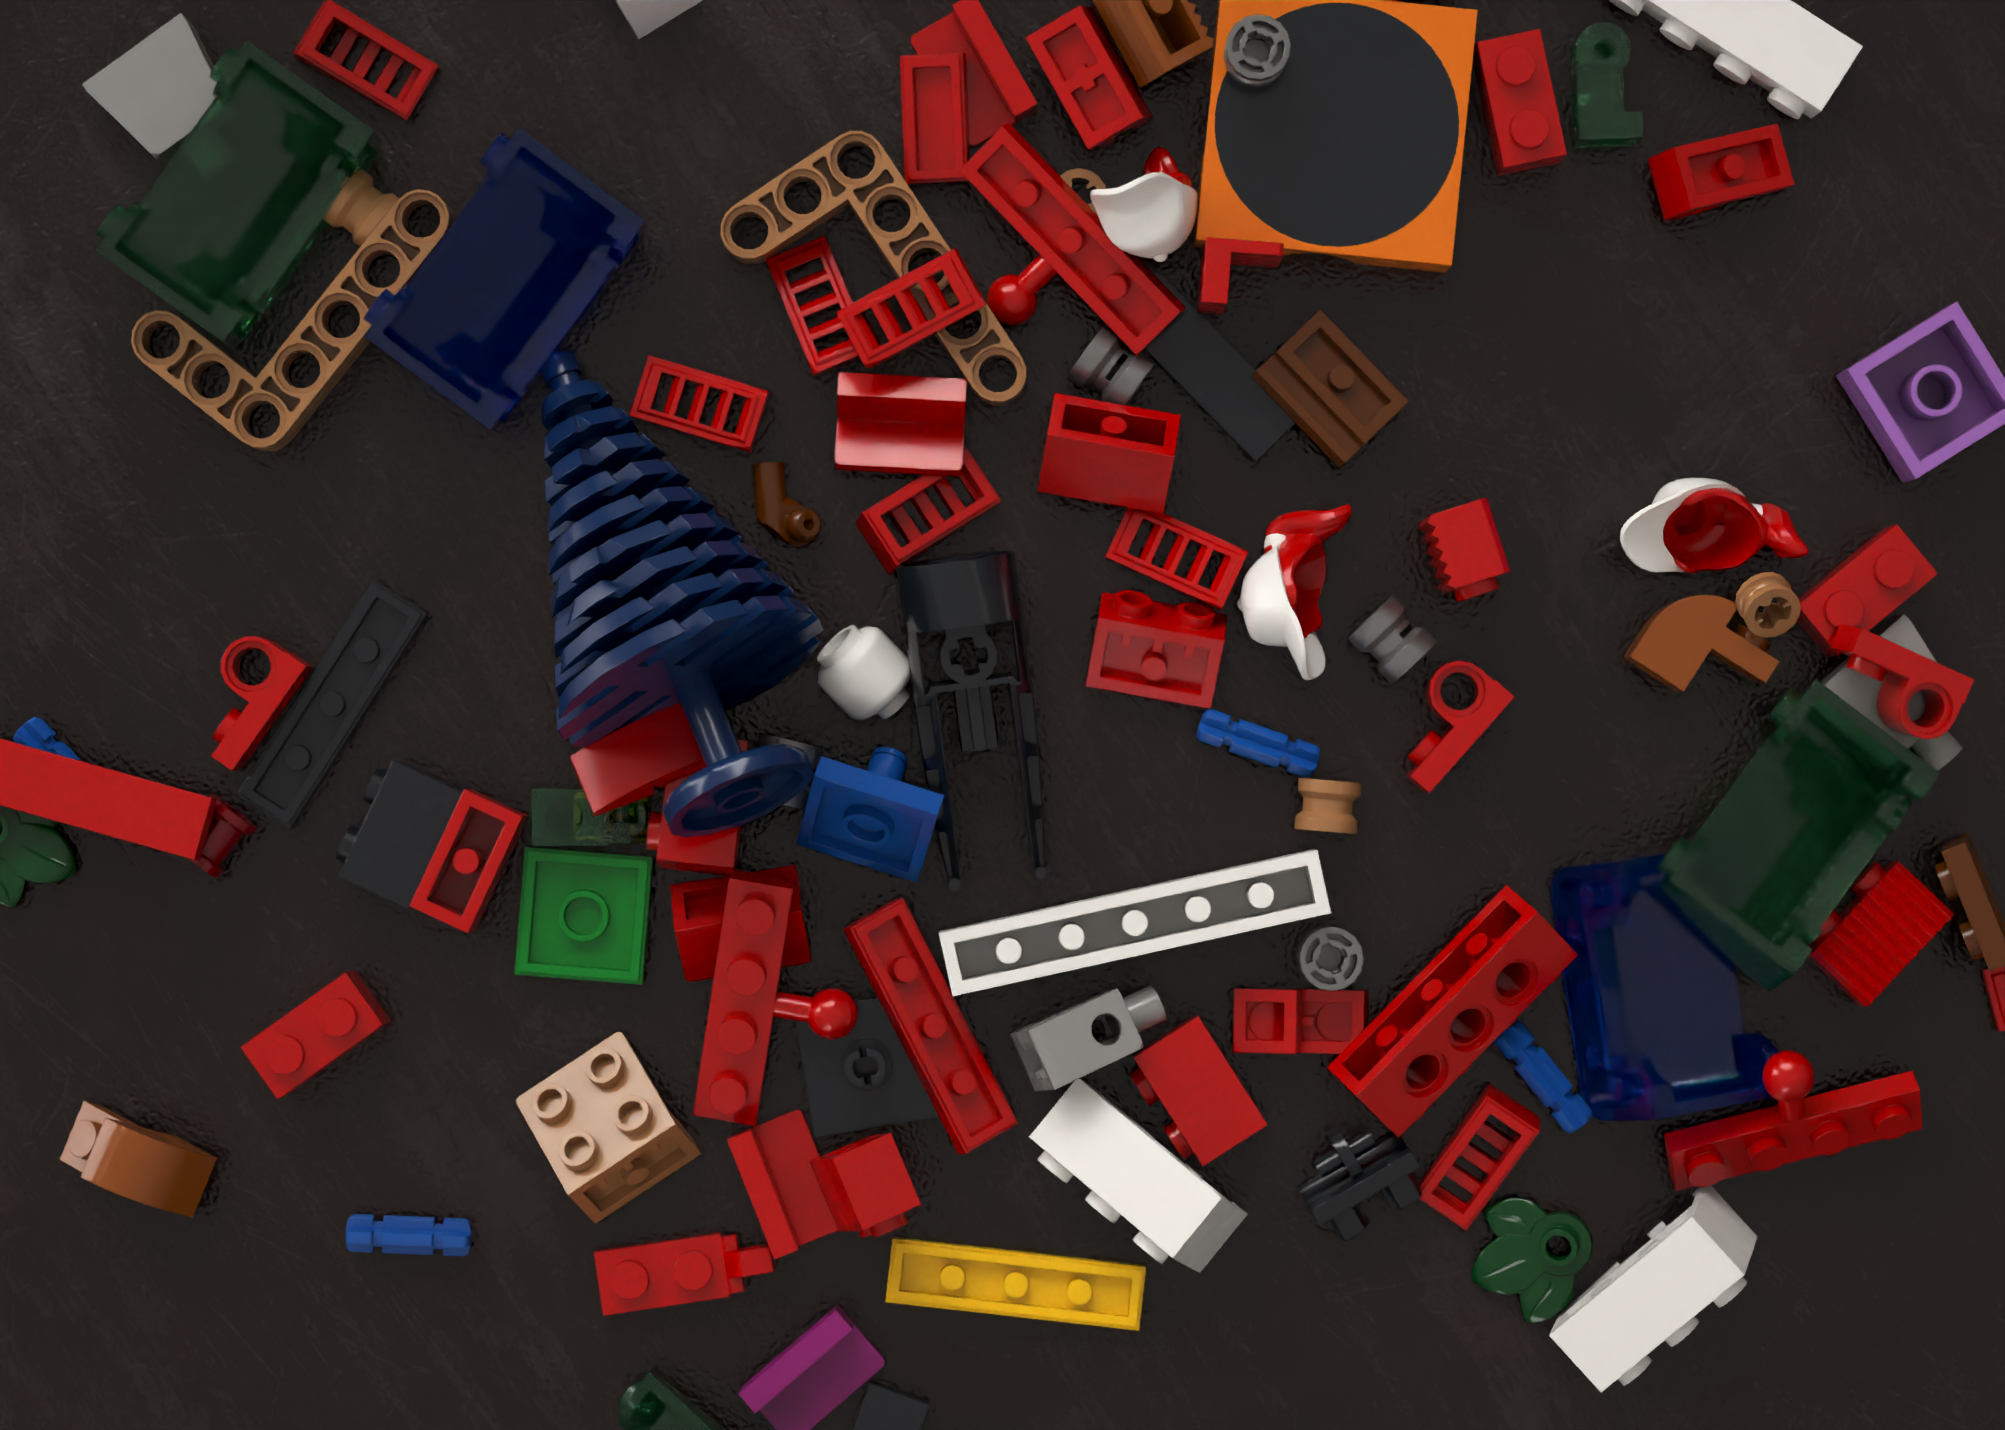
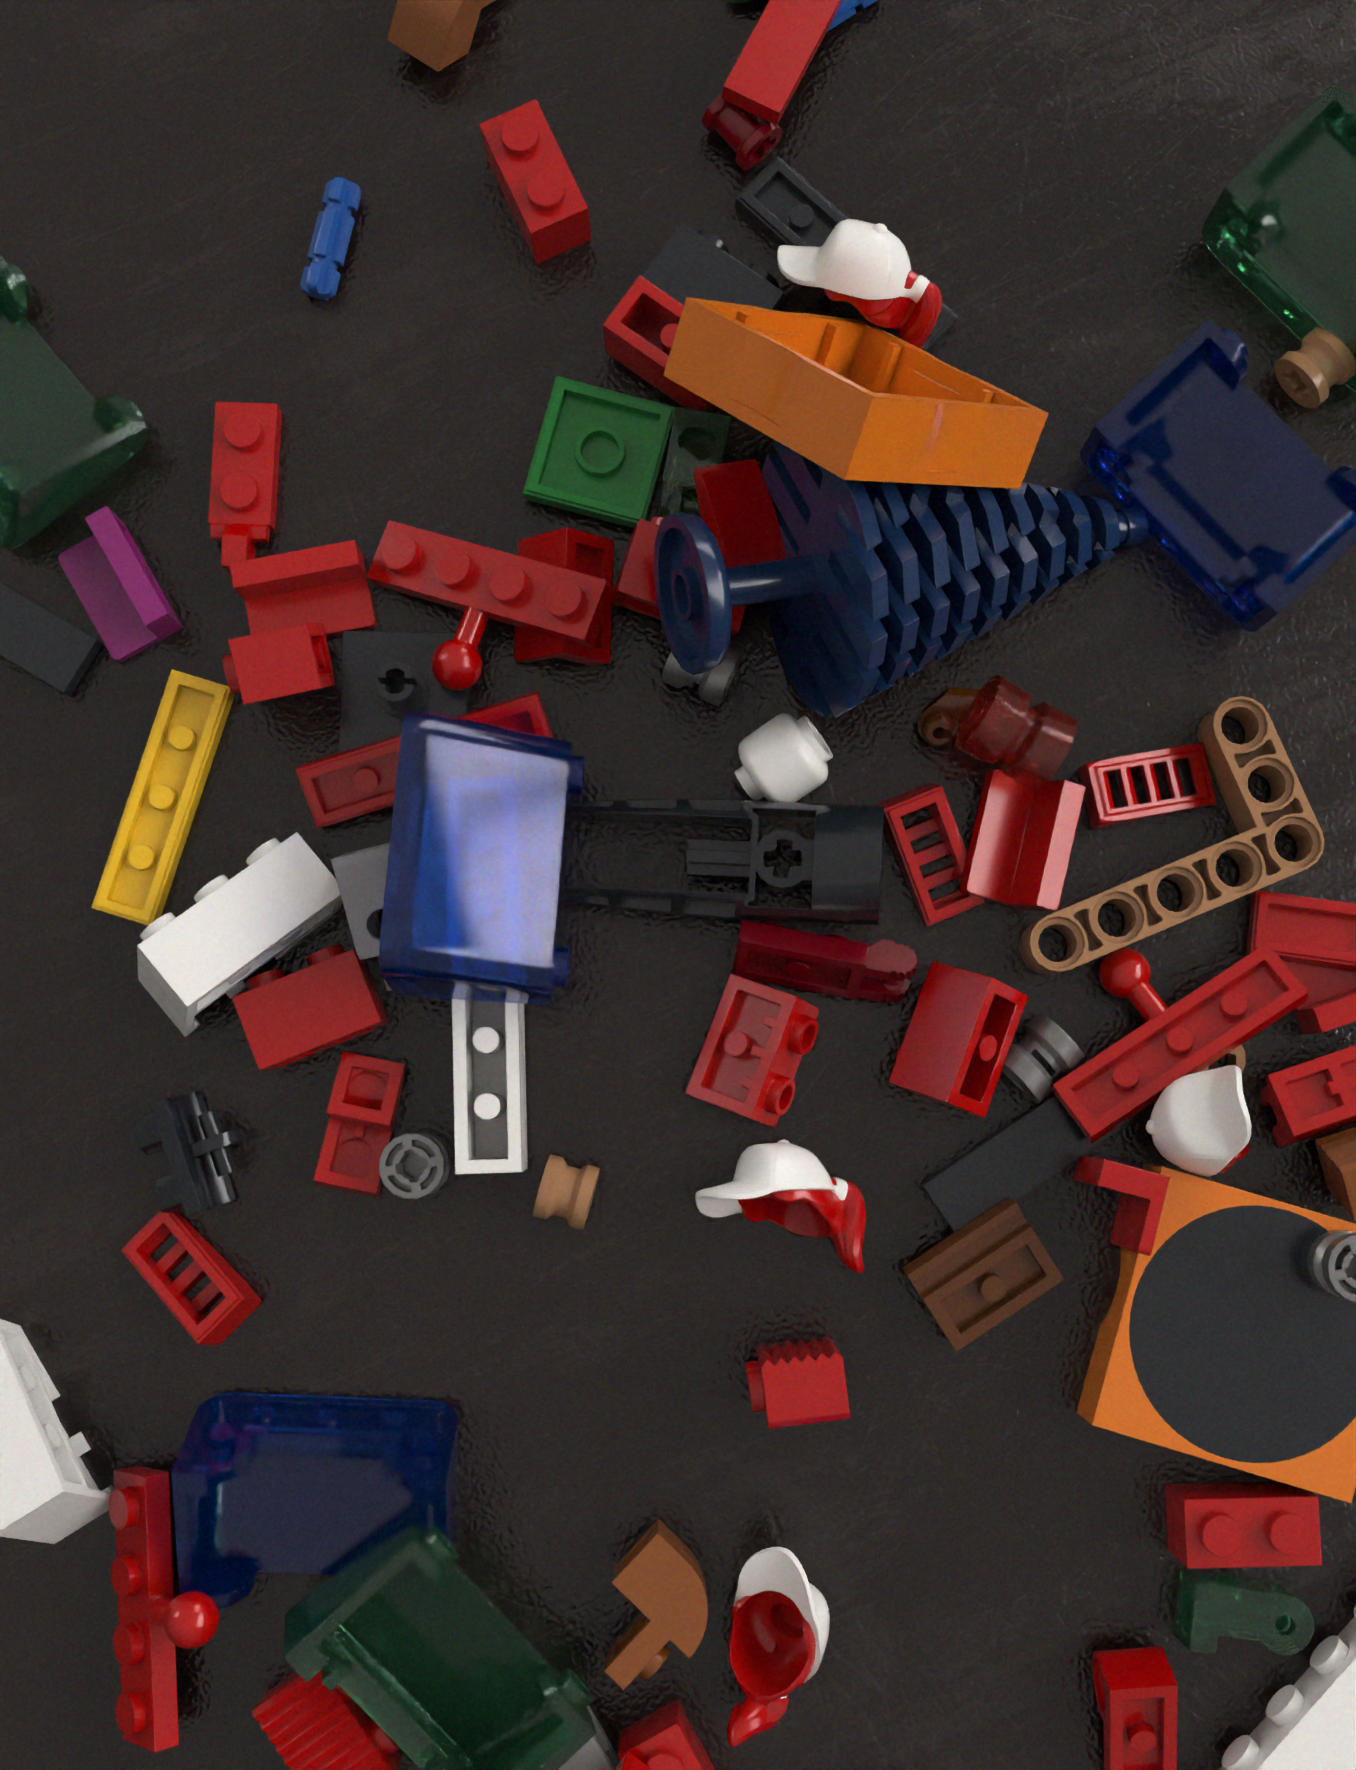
camera: 105 degrees right, 5 degrees down
(244, 731) = (856, 191): red plate -> none
(309, 337) = (1202, 295): medium nougat beam -> none
(362, 678) = (871, 272): none -> white hair
(516, 669) = (853, 397): none -> orange tile
(606, 1128) = (391, 434): bracket -> none
(750, 419) = (1045, 691): red slope -> none
(802, 439) = (1024, 737): none -> clear red wheel
(863, 335) = (1143, 811): red slope -> none
(870, 814) = (645, 737): blue tile -> none
(1030, 944) = (476, 862): none -> clear blue windscreen
(1058, 596) = (824, 962): none -> dark red hinge
(1225, 576) = (811, 1131): red slope -> none
(1258, 743) = (641, 1135): blue axle -> none
(1392, 639) = (720, 1289): flat silver wheel -> none
(1438, 754) = (596, 1312): red plate -> none
(1453, 1011) = (336, 1279): red brick -> none
(1523, 1260) = (76, 1302): dark green plate -> none
(1543, 1077) = (255, 1357): blue axle -> none
(1776, 617) = (699, 1688): medium nougat bush -> none

